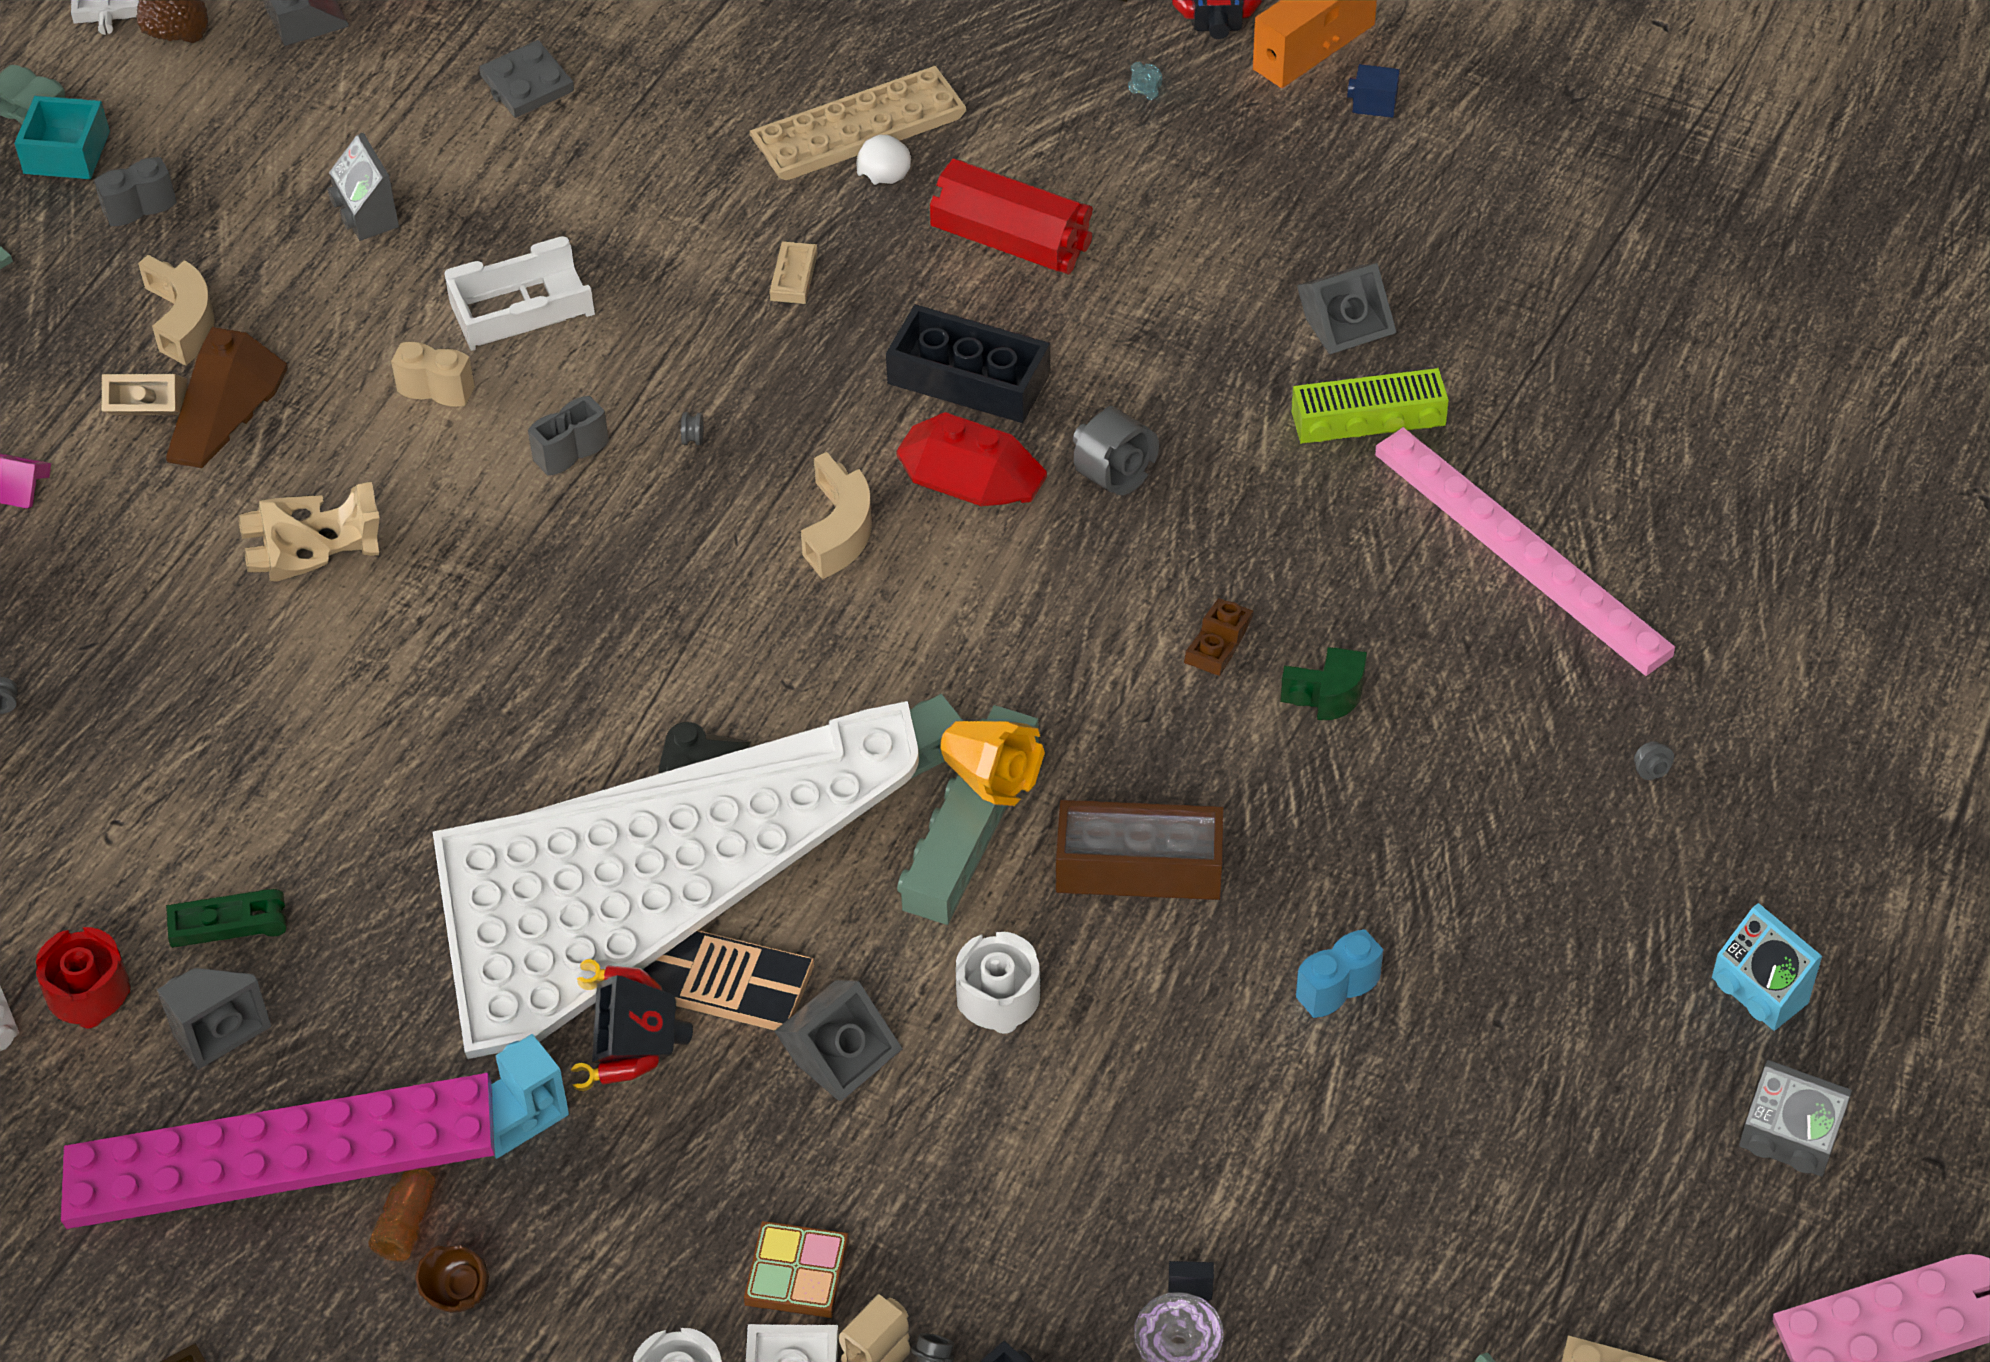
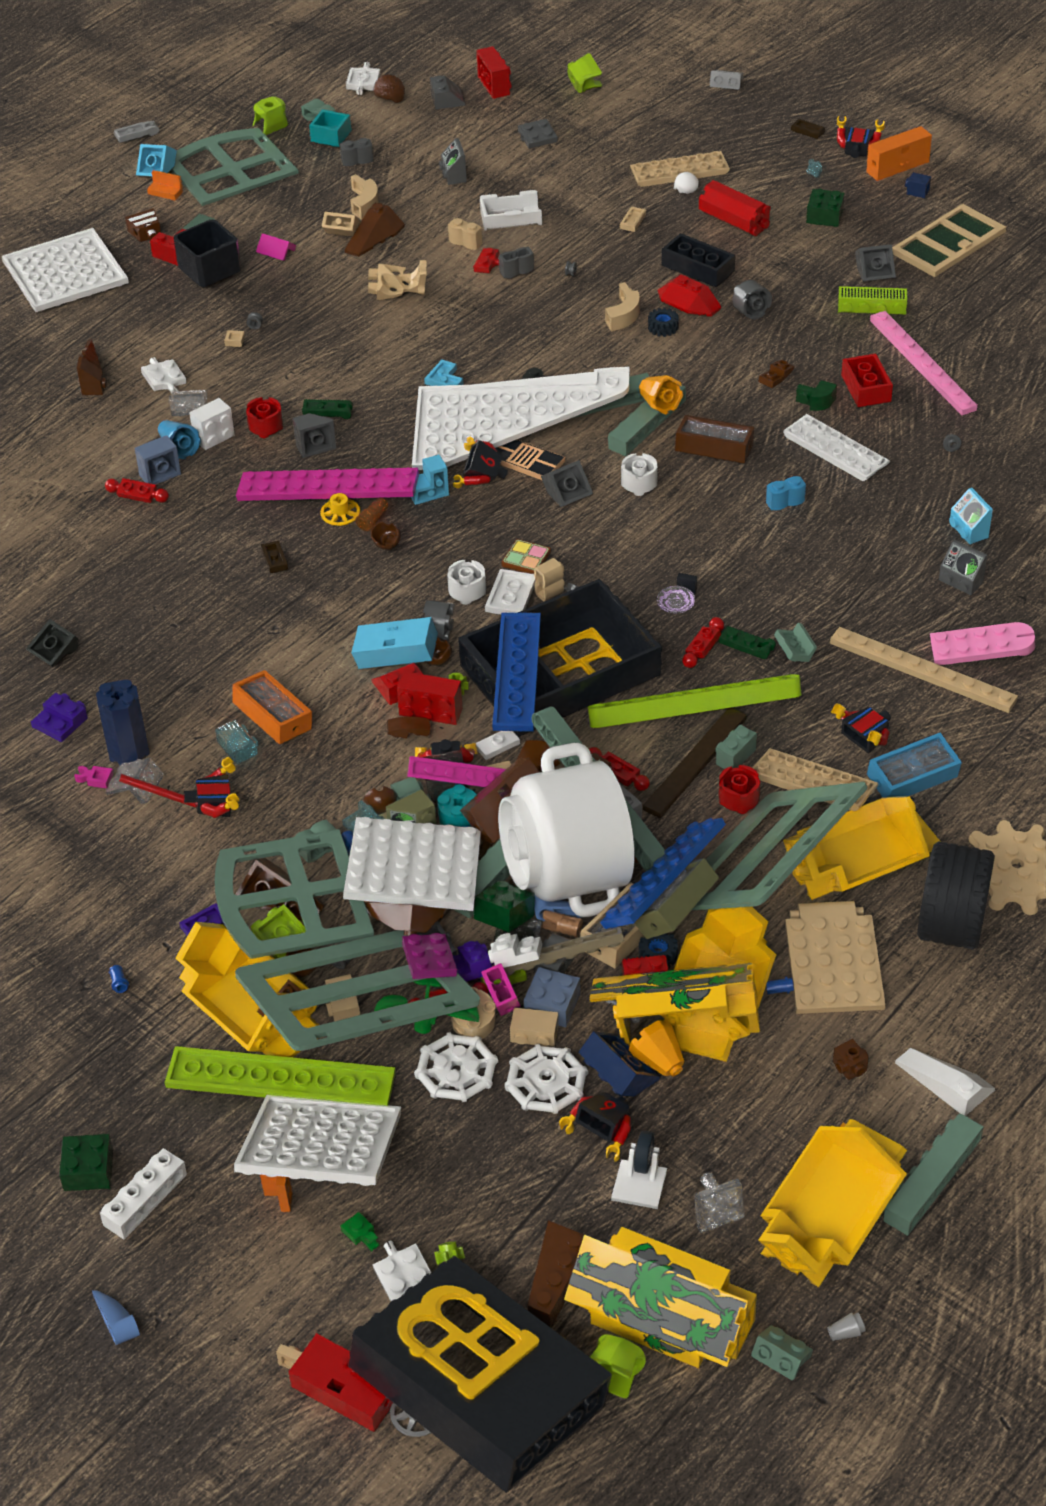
camera: 15 degrees right, 5 degrees down
(321, 1211) = (339, 507): none -> yellow wheel
(473, 784) = (443, 375): none -> medium azure plate
(498, 435) = (487, 260): none -> red plate
(922, 553) = (663, 322): none -> black bush
(1199, 180) = (825, 207): none -> dark green brick
(1407, 818) = (835, 447): none -> white plate
(1425, 627) = (867, 380): none -> red brick
(1476, 219) = (948, 240): none -> door

